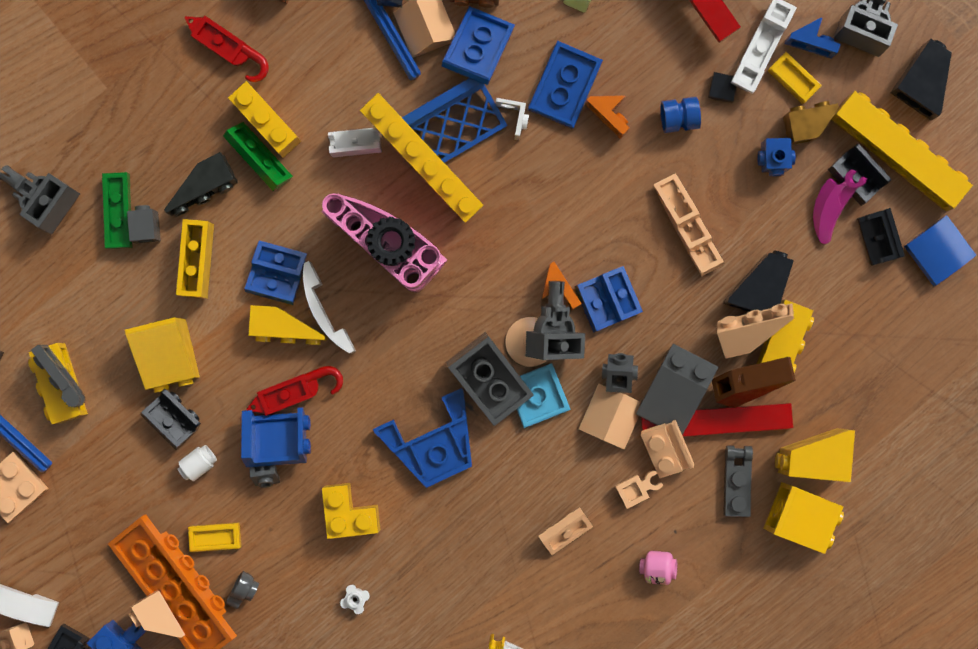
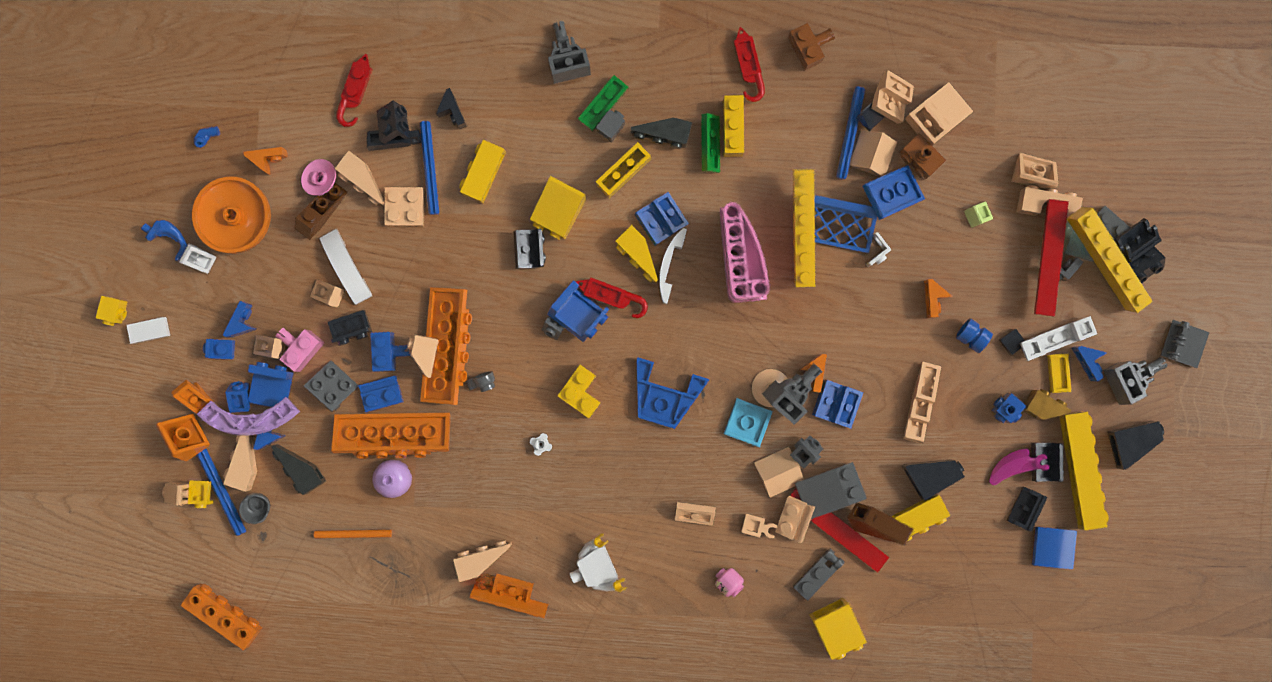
camera: 50 degrees right, 0 degrees up
(59, 376) = (489, 169): dark grey hinge -> none
(196, 463) = (520, 287): white brick -> none
(214, 537) = (492, 337): yellow tile -> none
(354, 142) = (773, 184): white hinge -> none
(407, 241) = (758, 255): black tyre -> none
(489, 378) = (729, 388): dark grey slope -> none
(565, 84) = (923, 259): blue tile -> none
(747, 332) = (901, 494): light nougat slope -> none
(819, 457) = (878, 602): yellow slope -> none

